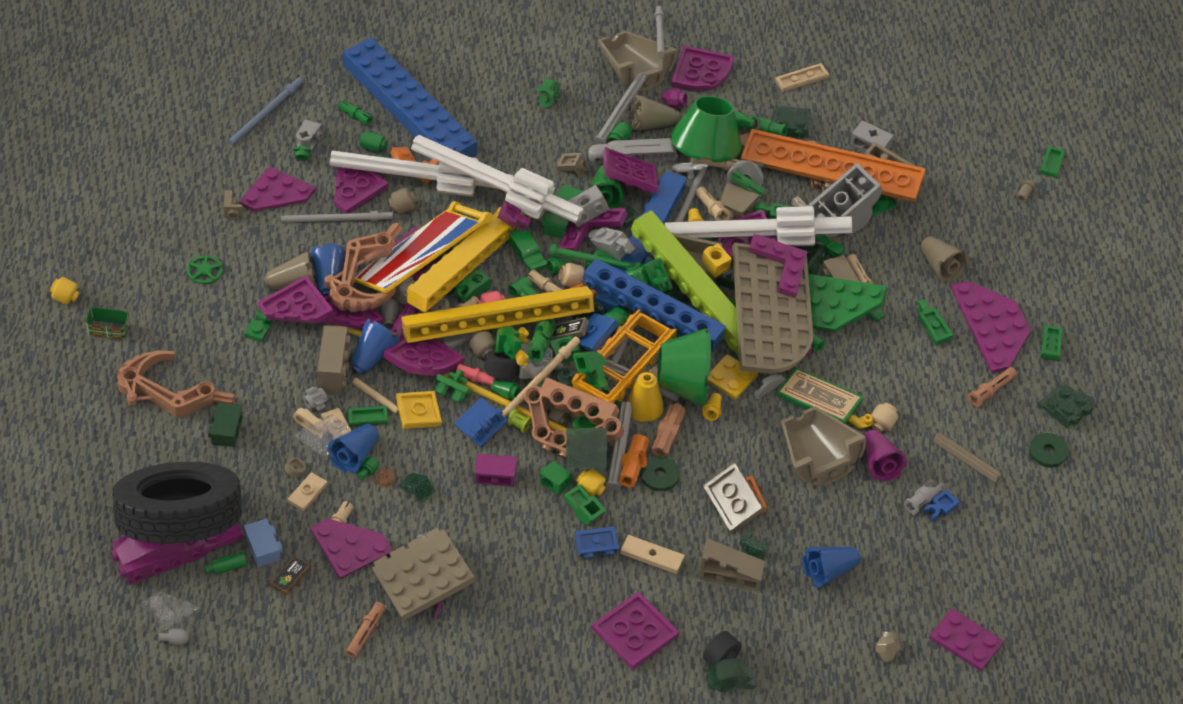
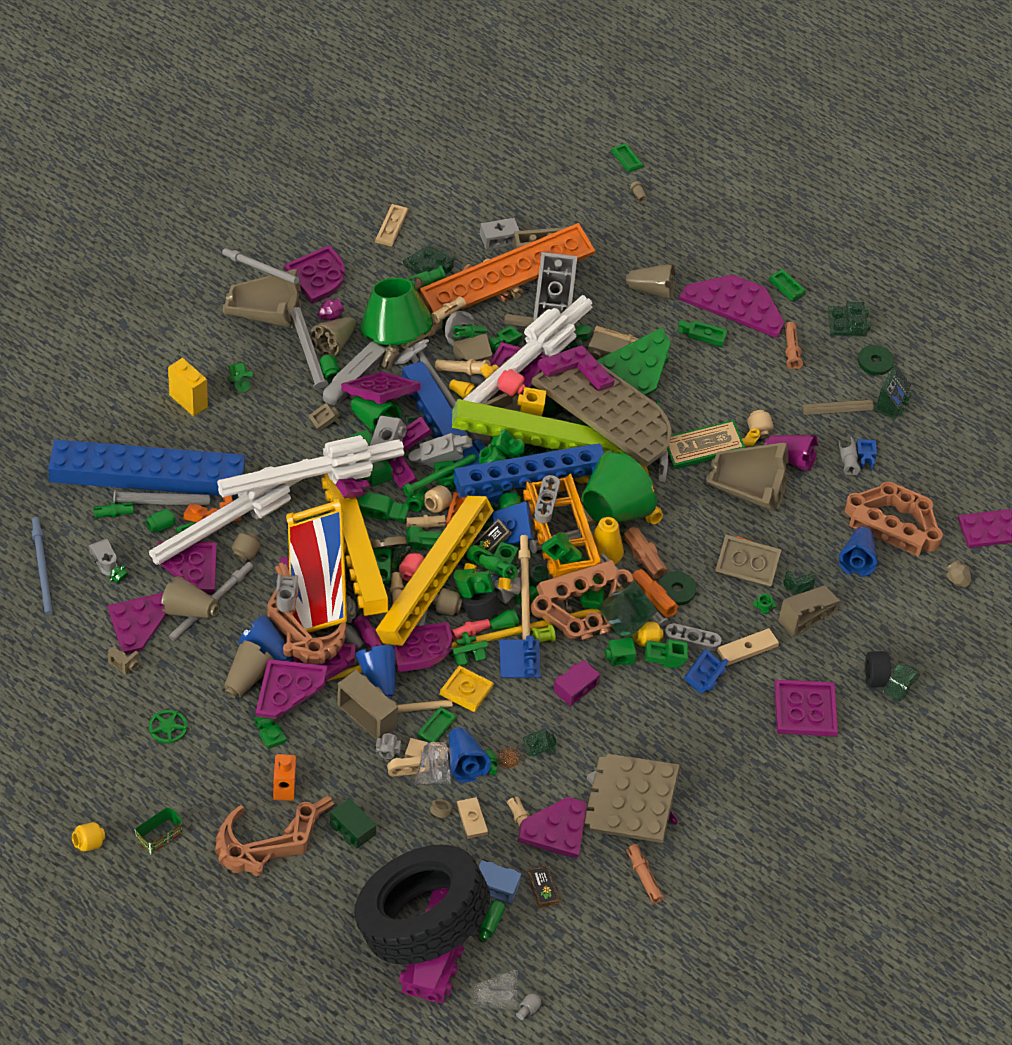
camera: 50 degrees left, 0 degrees up
(223, 358) = (284, 772): none -> orange torso
(313, 198) = (187, 600): none -> dark tan cone
(367, 240) = (286, 592): none -> light grey piece
(368, 106) = (160, 498): none -> light grey axle
(491, 286) = (399, 555): none -> clear green tile
(493, 272) = (390, 542): none -> dark tan tile
(500, 70) = (188, 387): none -> yellow brick
(623, 506) = (693, 631): none -> light grey beam
(637, 323) = (545, 492): none -> light grey beam
(673, 156) = (391, 353): none -> dark tan pin
(708, 533) = (764, 598): none -> green plate
(716, 216) = (487, 370): none -> yellow arm
(716, 233) = (511, 382): none -> coral head
(763, 158) = (457, 304): none -> tan pin
(904, 542) = (865, 513): none -> nougat brick
(1020, 480) = (894, 394): none -> clear green slope

